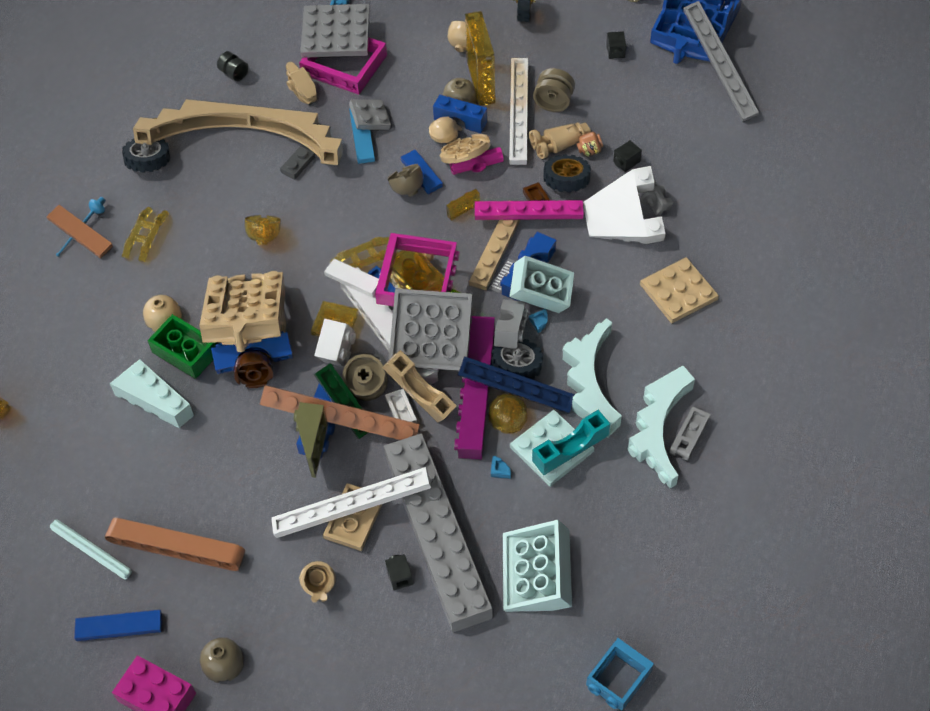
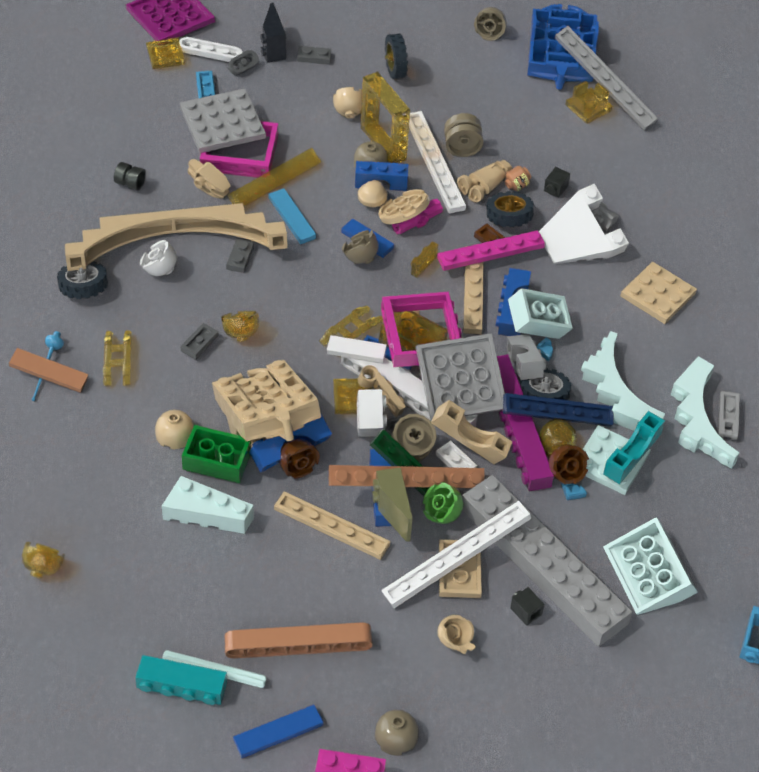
camera: 25 degrees left, 5 degrees down
(55, 551) = (181, 680): none -> teal brick
(220, 151) = (160, 259): none -> white cylinder
(222, 235) = (199, 341): none -> dark grey plate
(259, 442) = (332, 525): none -> tan tile
(363, 322) = (393, 401): none -> tan plate
(365, 449) = (443, 503): none -> bright green cylinder
(369, 114) = (292, 194): light grey plate -> none
(373, 91) = (275, 178): none -> clear yellow plate
(495, 286) = (491, 316): light grey sticker -> none
(501, 442) = (568, 463): none -> reddish brown cylinder
(616, 45) = (498, 82): pearl dark grey brick -> none
(698, 83) = (589, 103): none -> clear yellow panel

